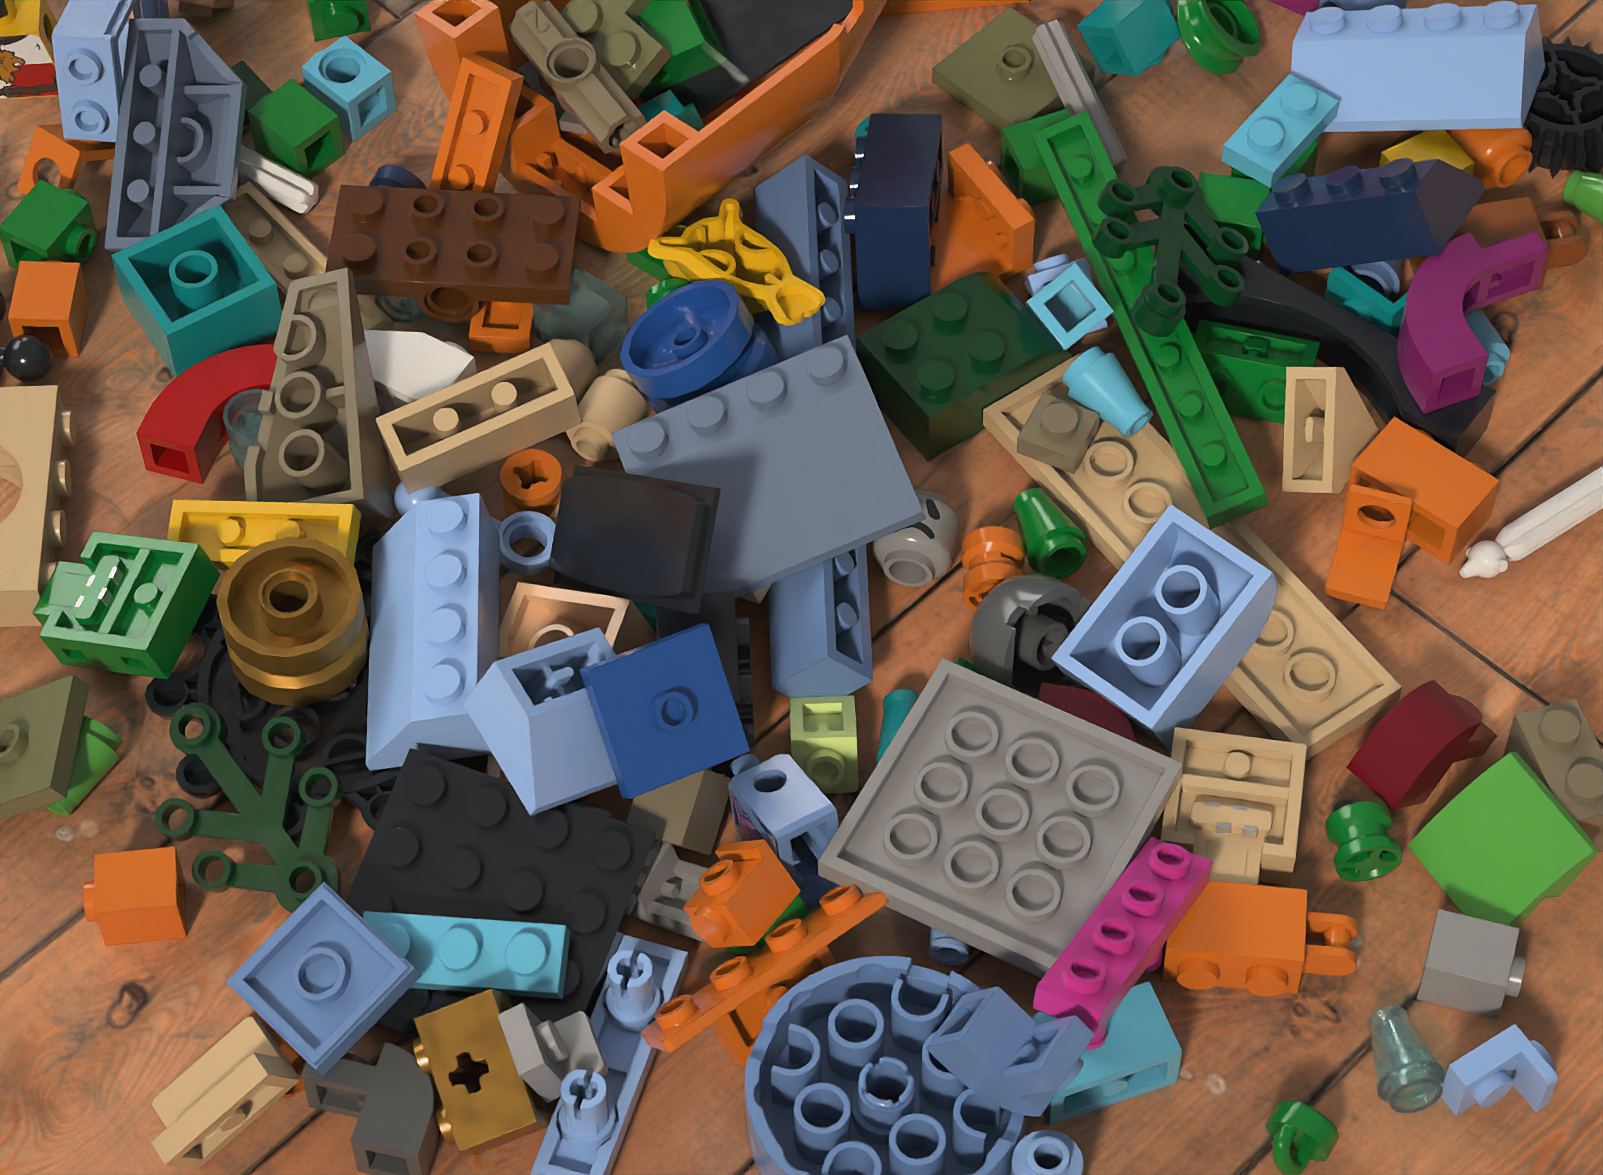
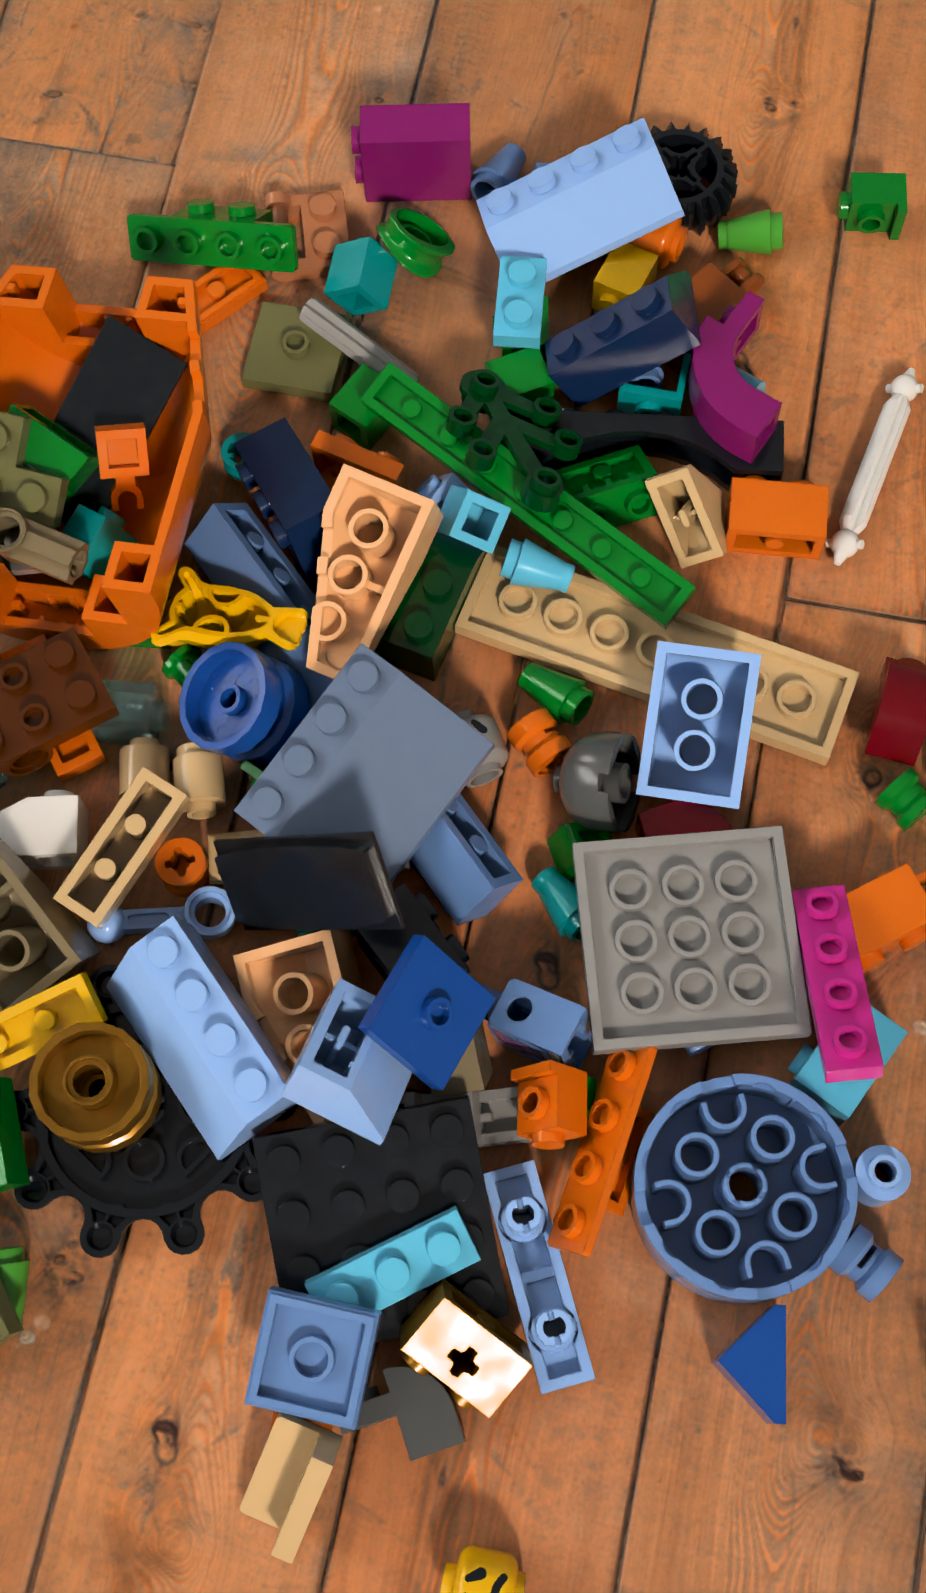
camera: 30 degrees left, 15 degrees up
(137, 896) = (120, 1362): orange brick -> none
(260, 817) = (168, 1247): dark green plant -> none
(551, 1050) = (508, 1305): light grey bracket -> none
(741, 61) = (122, 456): none -> orange plate
(826, 741) = (514, 939): yellowish green bracket -> none
(926, 278) = (366, 564): none -> light nougat wedge
(1007, 1054) = (827, 1120): medium blue brick -> none
(1058, 433) = (520, 615): dark tan plate -> none
(1237, 804) = (822, 825): tan piece -> none
(1368, 548) = (771, 584): orange bracket -> none

